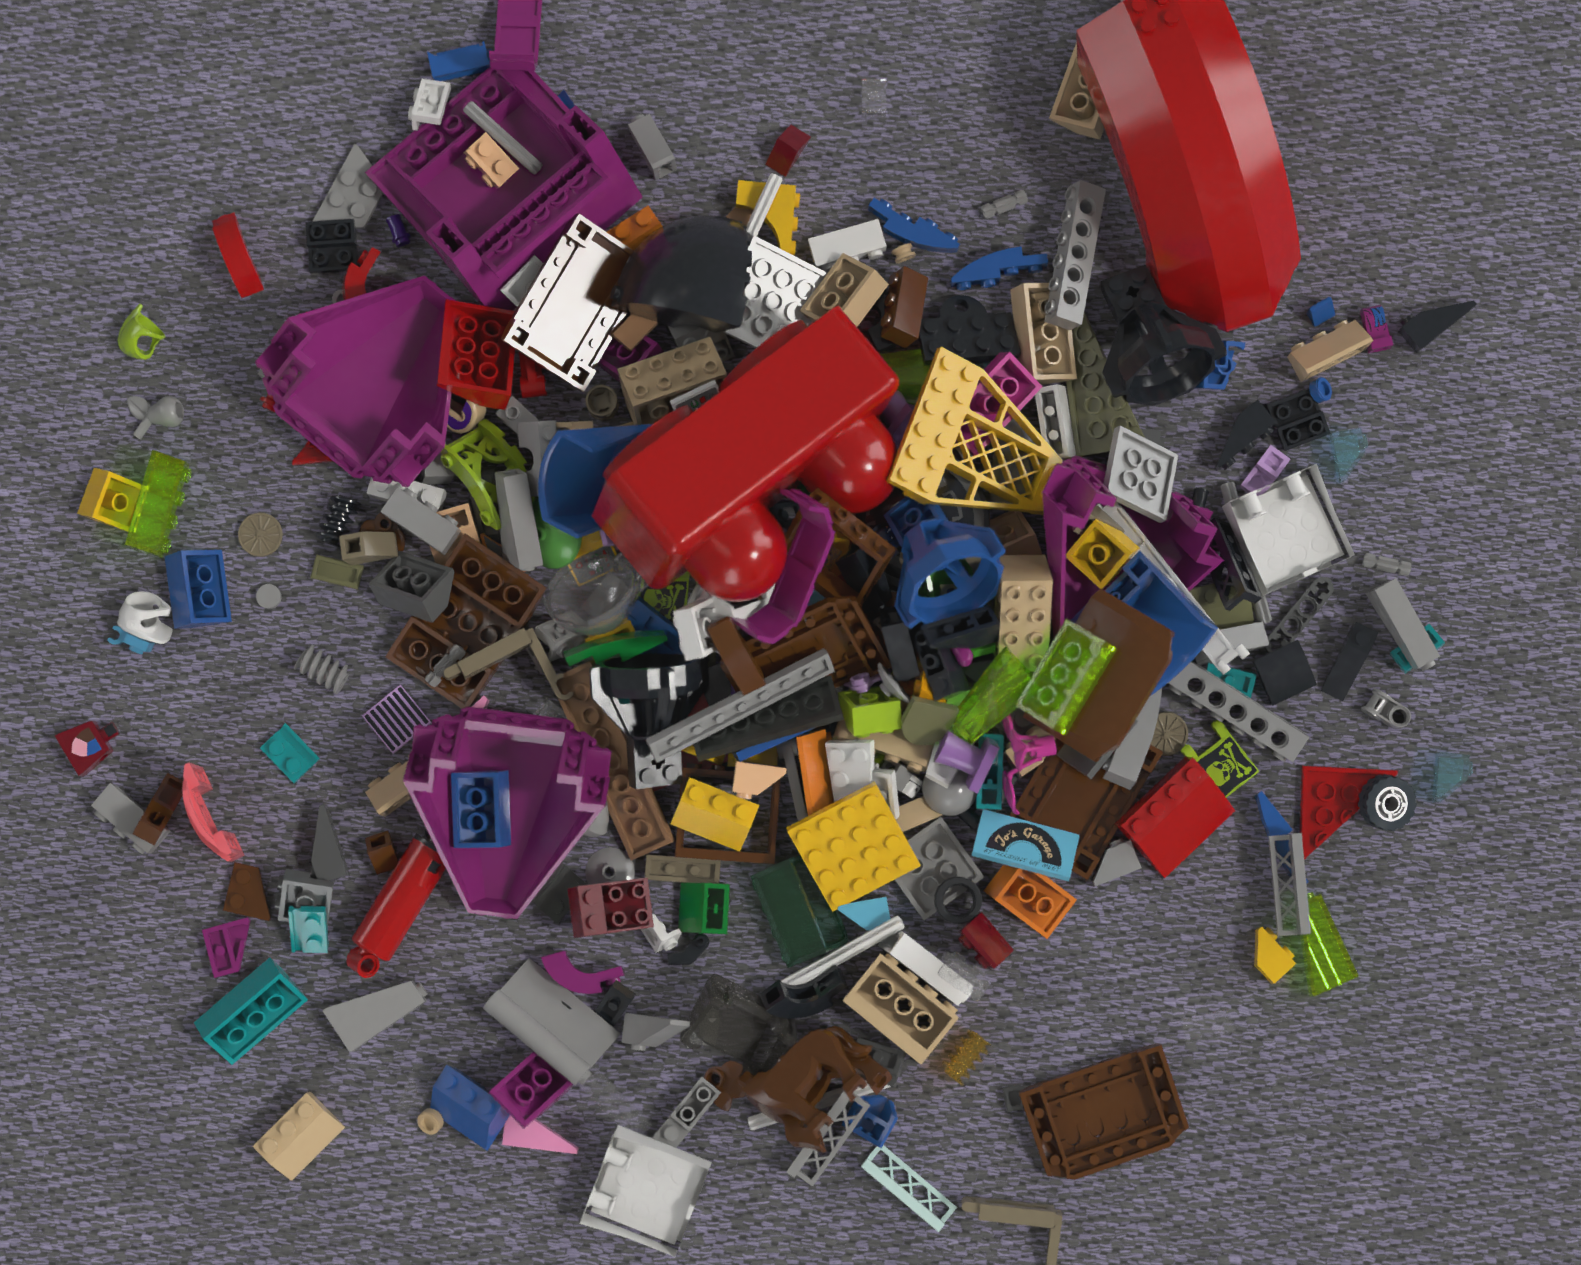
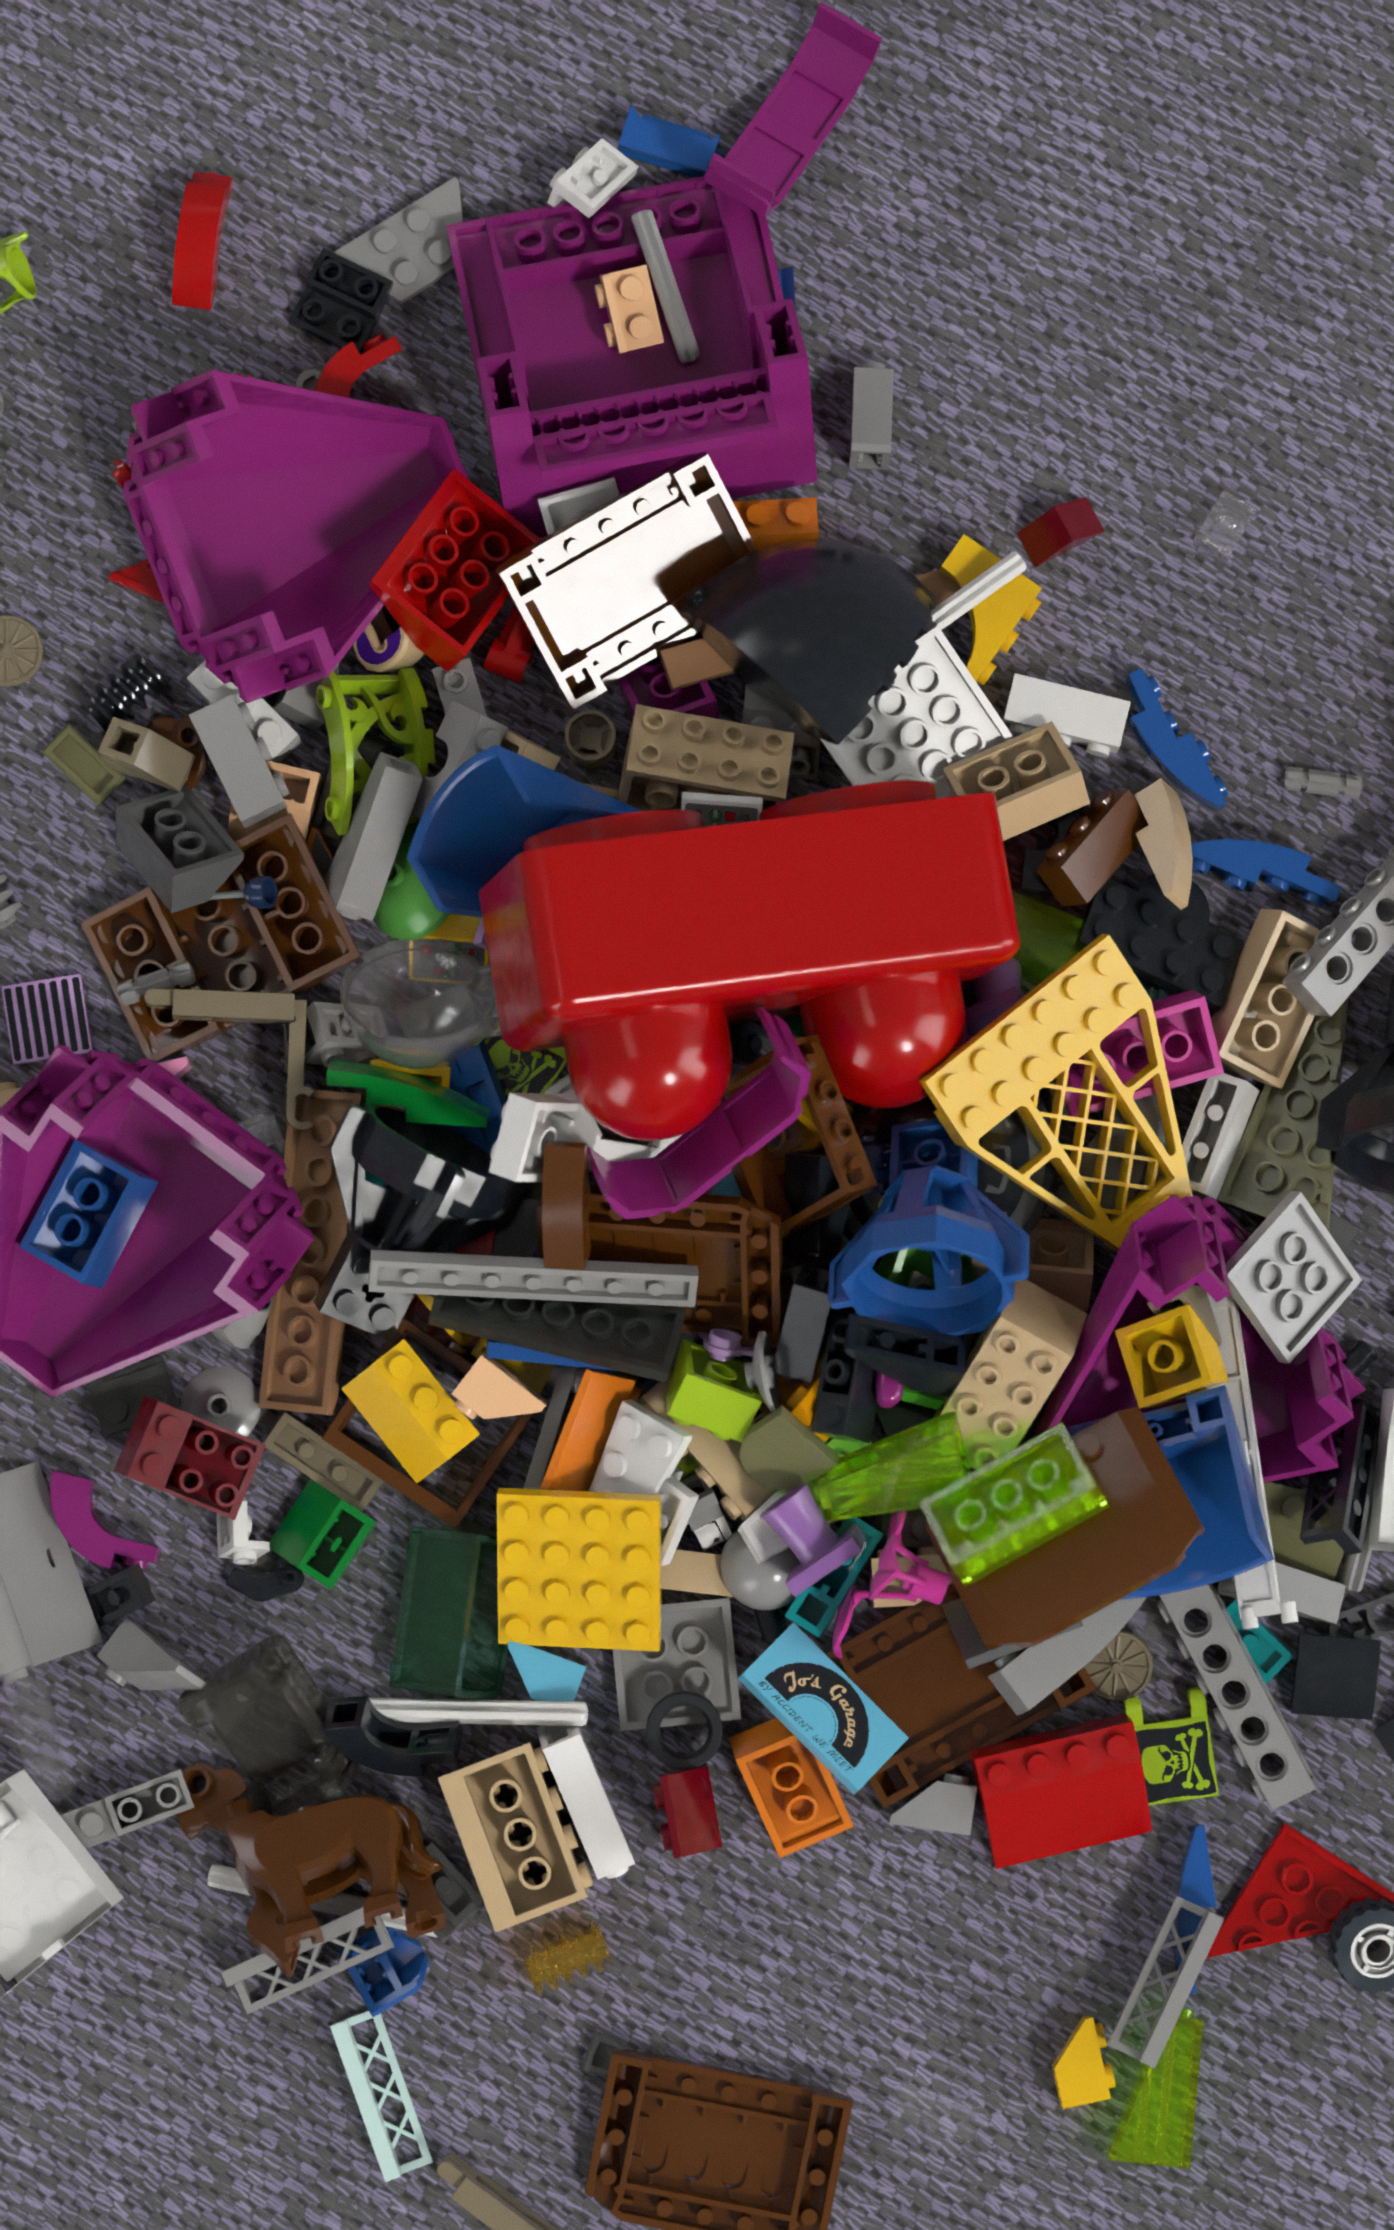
camera: 25 degrees right, 0 degrees up
(398, 231) = (445, 334): dark purple pin -> none
(472, 585) = (258, 892): none -> dark blue hinge
(903, 253) = (1139, 770): tan bush -> none
(940, 281) = (1167, 840): none -> tan slope
(963, 977) = (628, 1843): clear bracket -> none

